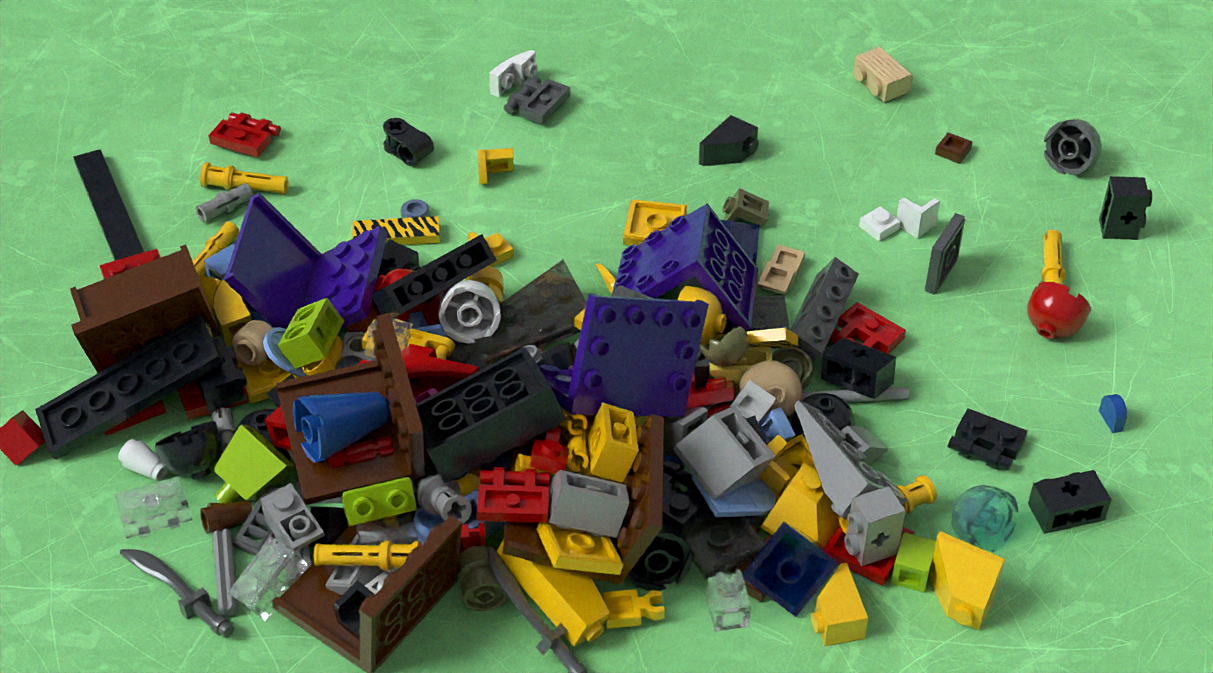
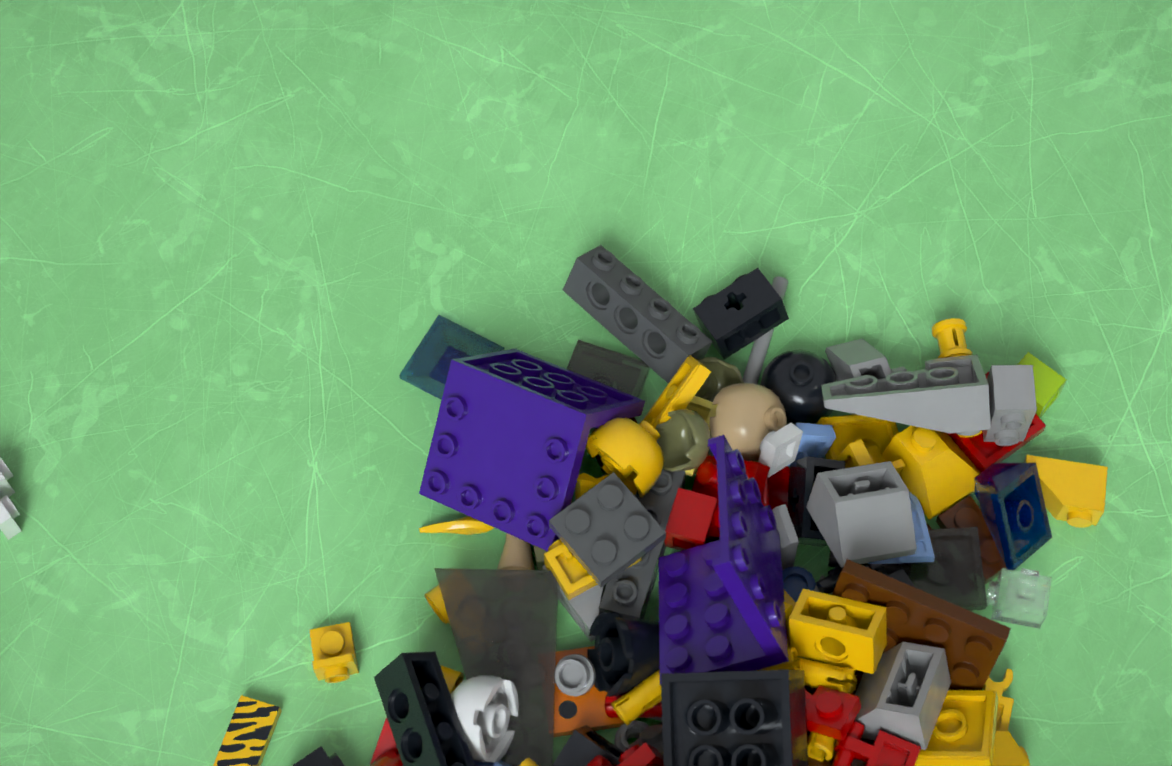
camera: 65 degrees left, 20 degrees up
(406, 141) = (74, 687): black piece -> none
(415, 208) = (209, 722): sand blue tile -> none
(494, 161) = (167, 597): yellow tile -> none
(537, 100) = (76, 476): dark grey plate -> none
(647, 217) = (385, 433): yellow plate -> none
(729, 143) = (281, 282): black slope -> none
(746, 206) = (409, 318): olive bracket -> none
(781, 270) = (530, 325): tan slope -> none
(869, 327) = (677, 269): red plate -> none
(879, 223) = (499, 183): white plate -> none
(882, 74) = (243, 57): tan brick -> none
(917, 219) = (515, 140): white panel -> none
(945, 253) = (607, 139): dark grey plate -> none
(953, 148) = (407, 44): reddish brown tile -> none
(964, 579) = (1092, 350): yellow slope -> none
(984, 517) = (1000, 293): clear light blue cylinder -> none
(987, 439) = (877, 225): black plate -> none
(1053, 261) = (667, 46): yellow pin -> none
(1056, 311) = (741, 76): red cylinder -> none
(1069, 501) = (1006, 218): black brick -> none
(1113, 412) = (896, 95): blue tile -> none

